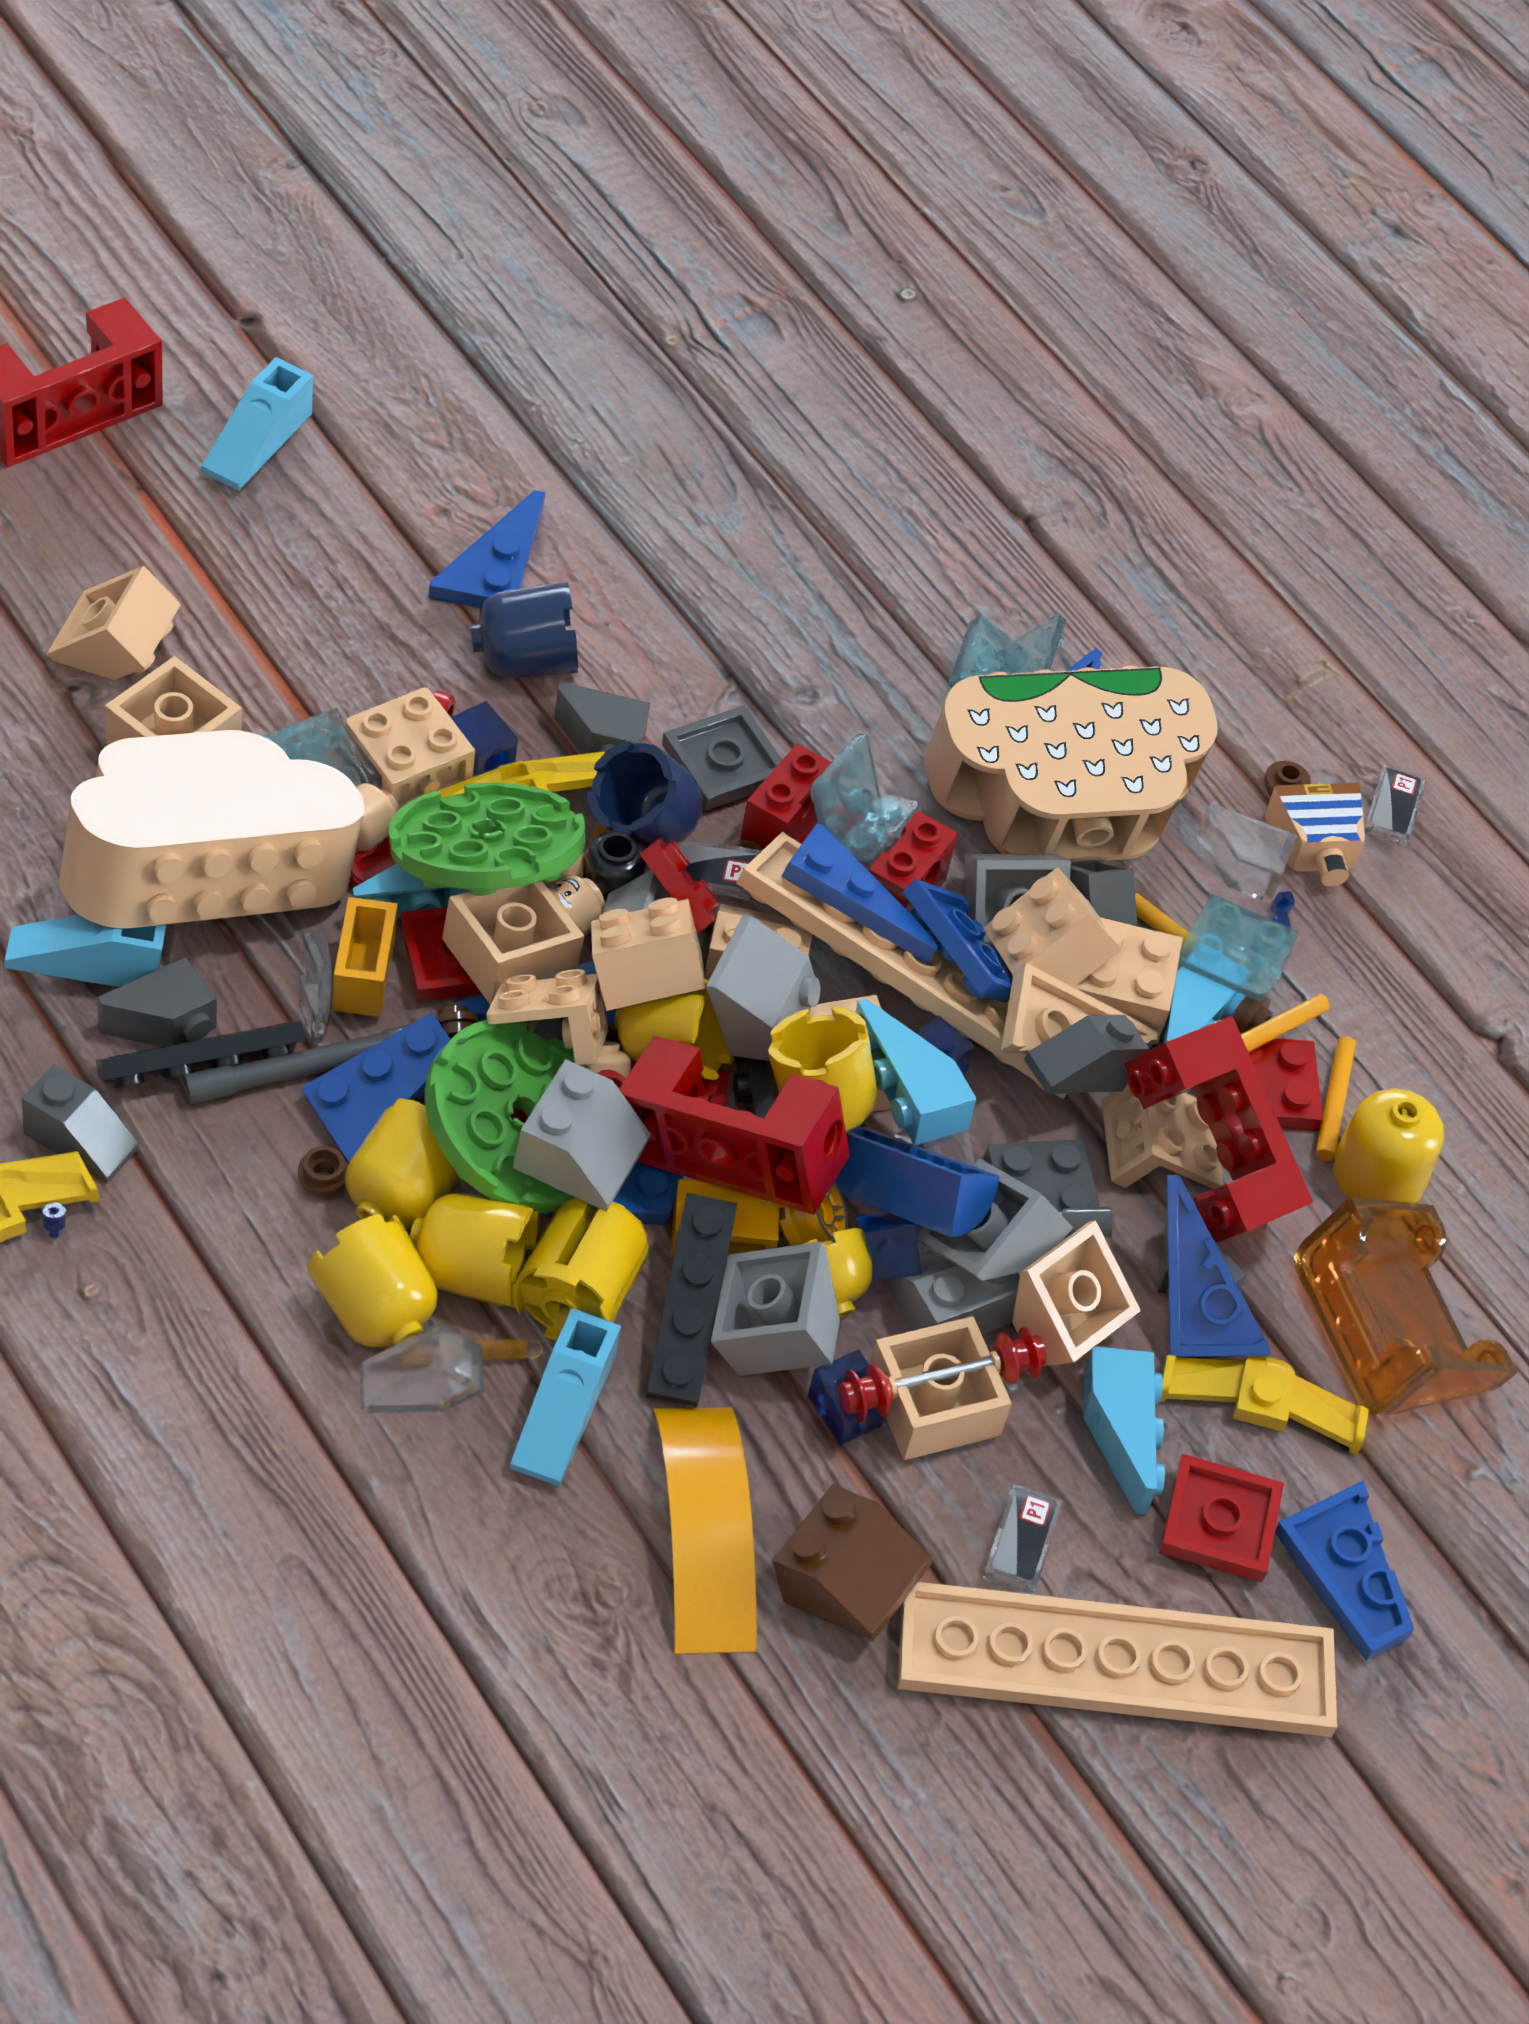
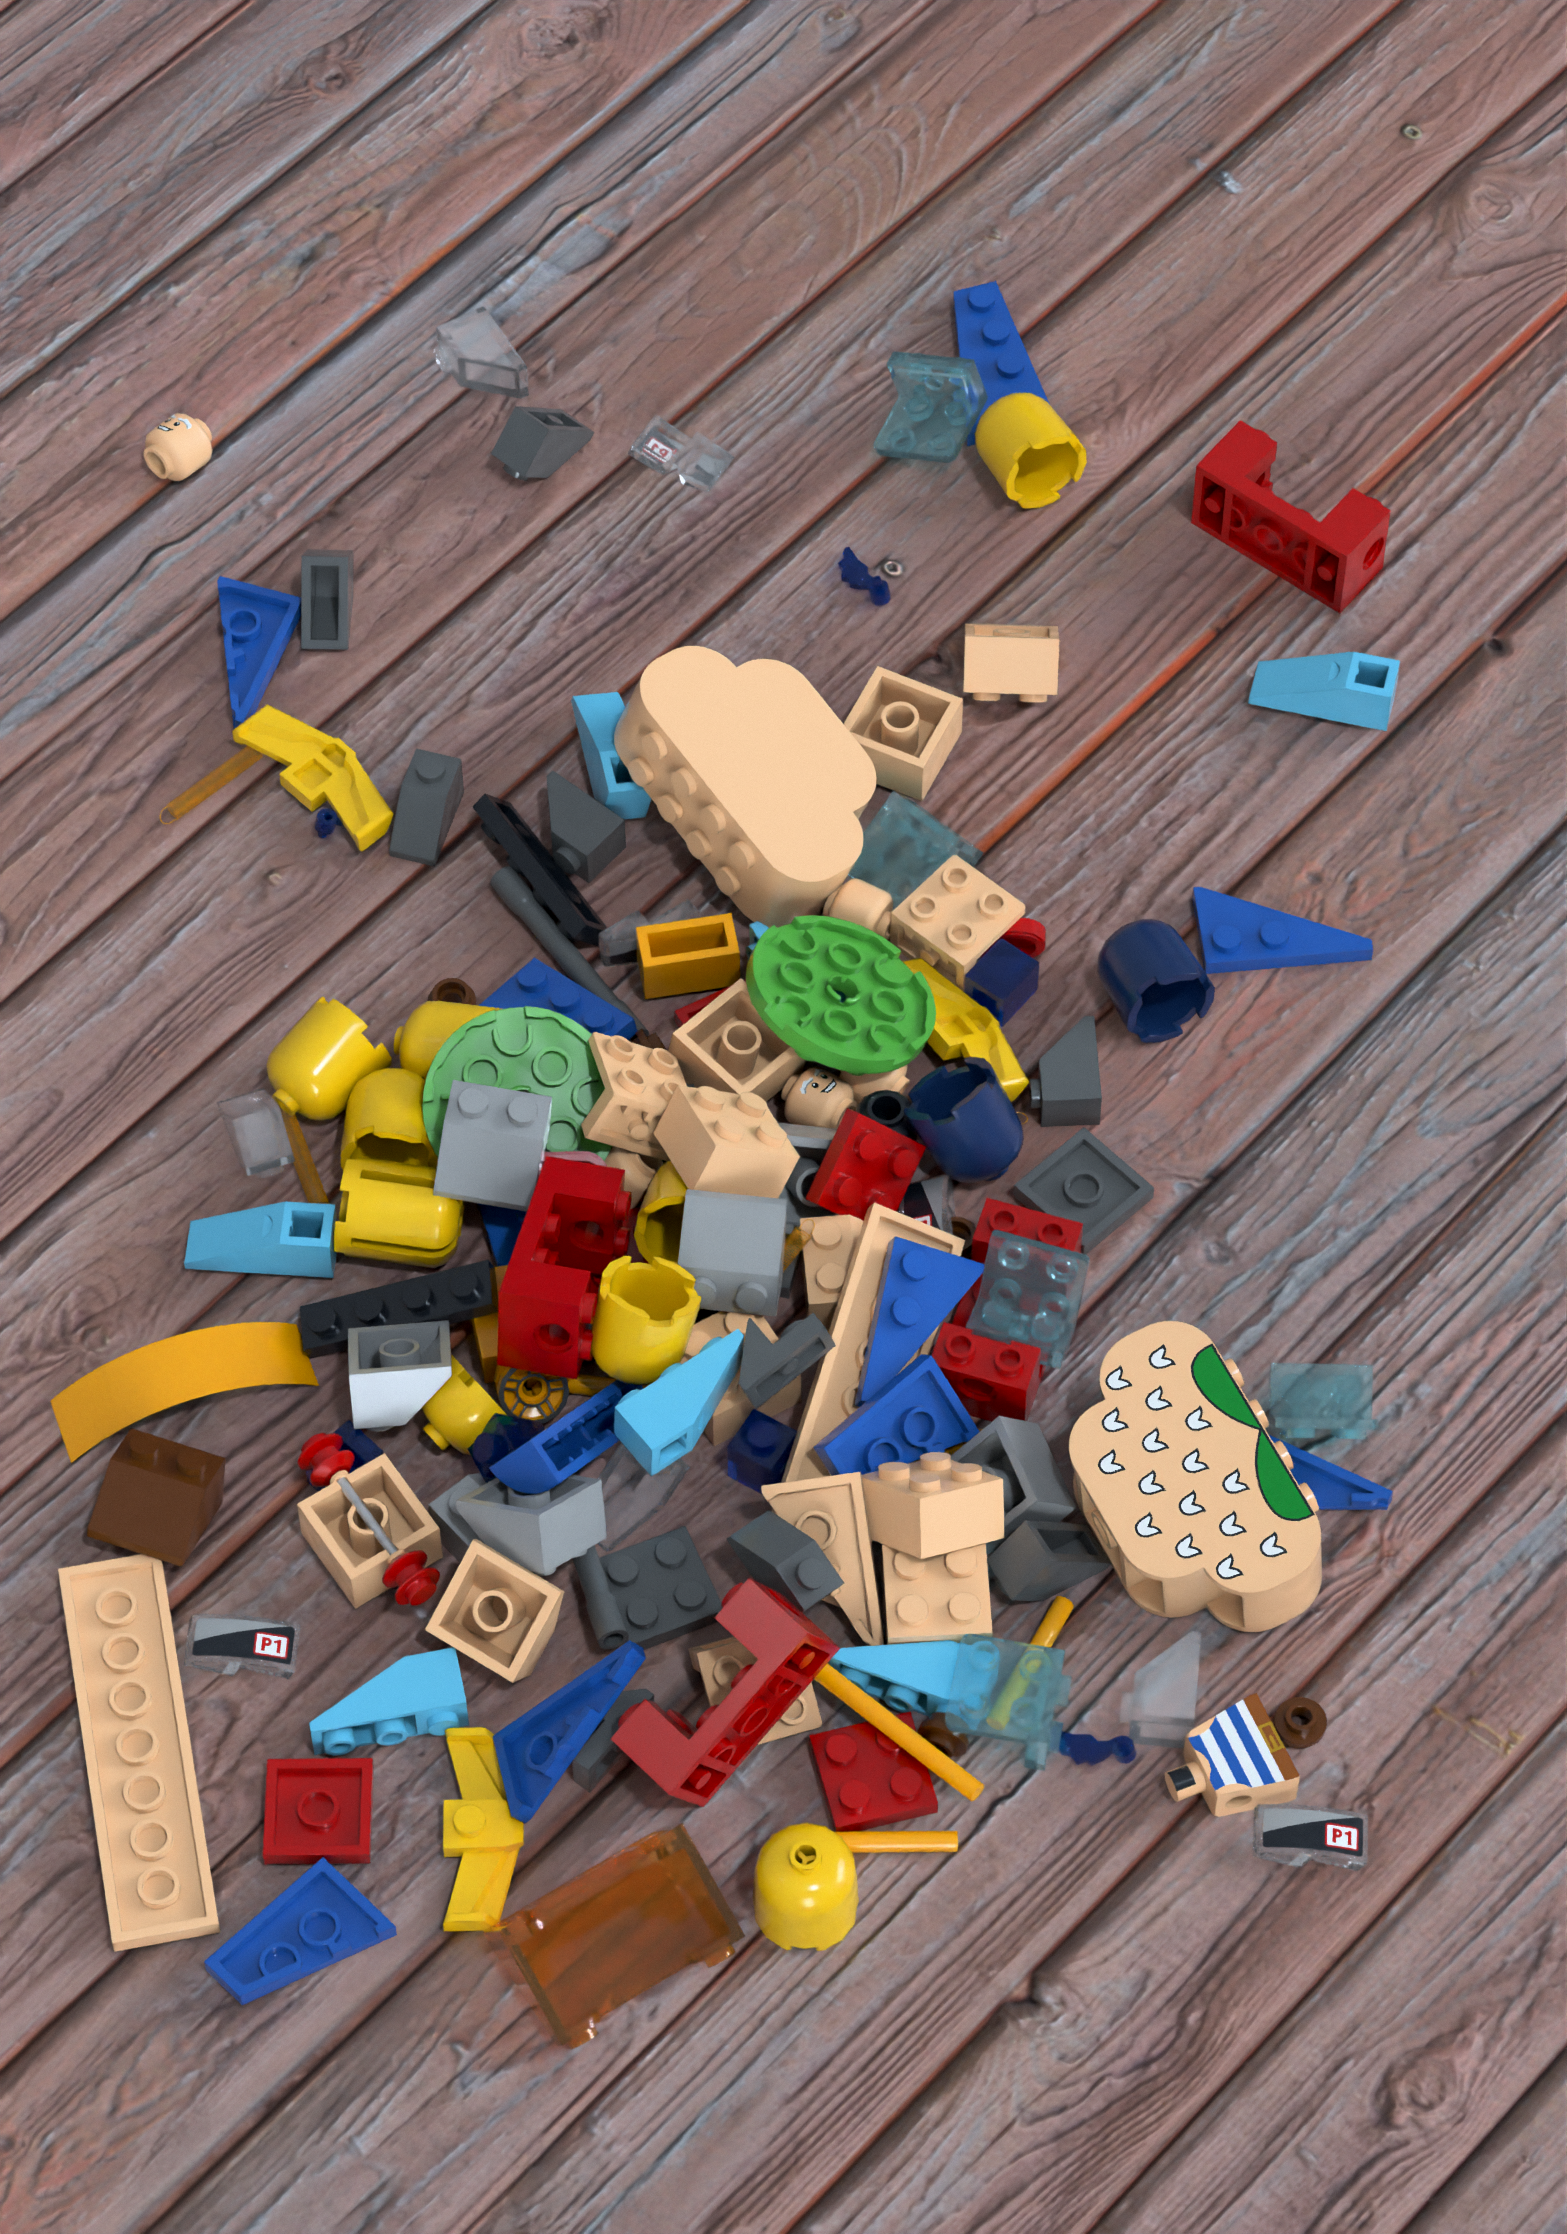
camera: 85 degrees right, 5 degrees up
(887, 982) = (772, 1366): none -> dark grey slope

